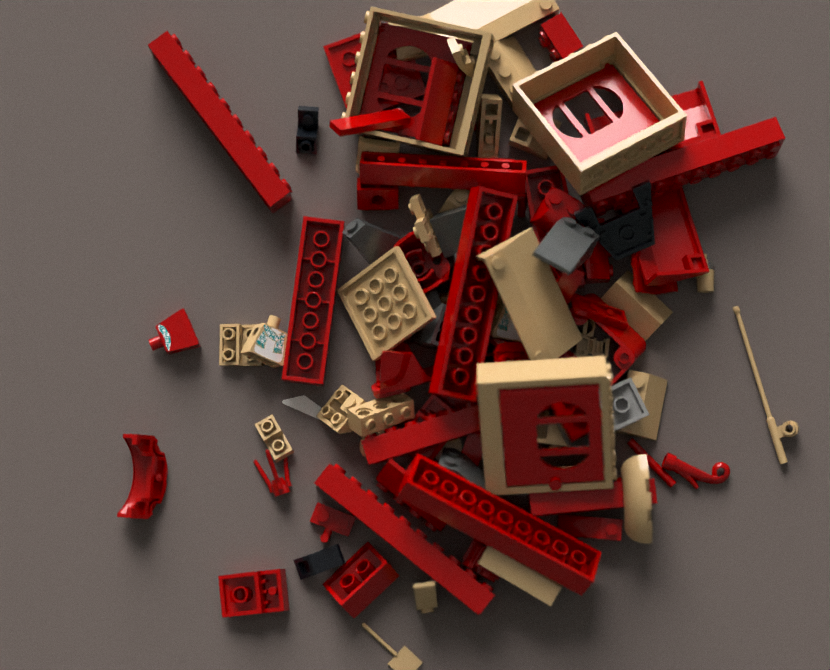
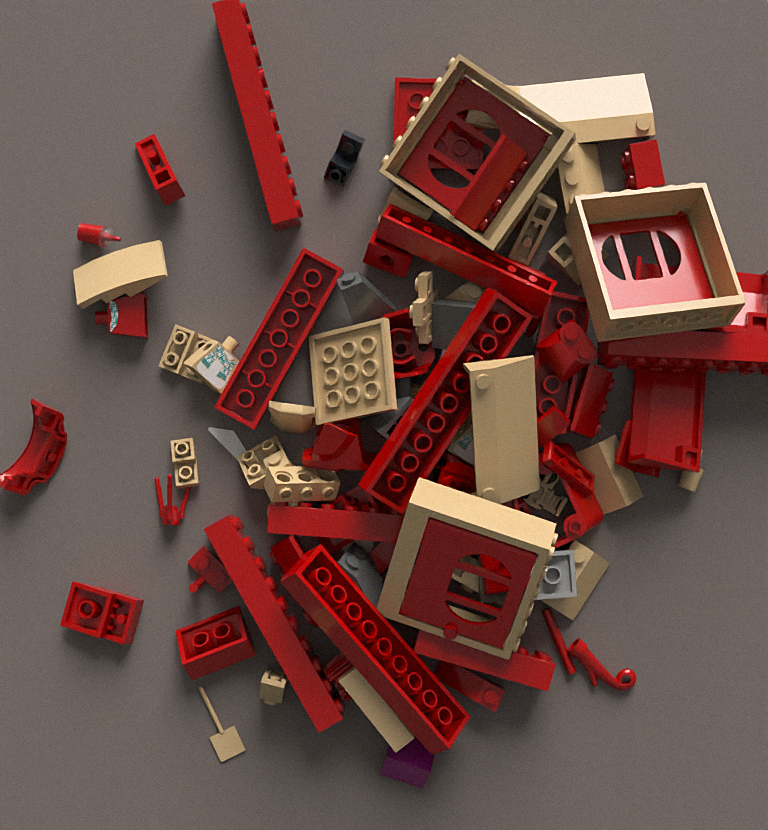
camera: 20 degrees right, 5 degrees up
(124, 275) = (97, 235): none -> red piece
(155, 200) = (159, 170): none -> red slope
(157, 298) = (120, 273): none -> tan slope
(319, 561) = (181, 608): black slope -> none
(350, 362) = (292, 417): none -> tan slope
(369, 122) = (409, 176): red tile -> none
(463, 60) = (532, 144): tan slope -> none
(566, 615) = (409, 765): none -> magenta slope
(567, 245) = (562, 389): dark grey slope -> none
(627, 231) = (631, 397): black wing -> none
(637, 499) = (527, 681): tan brick -> none
(776, 432) = (703, 662): tan piece -> none

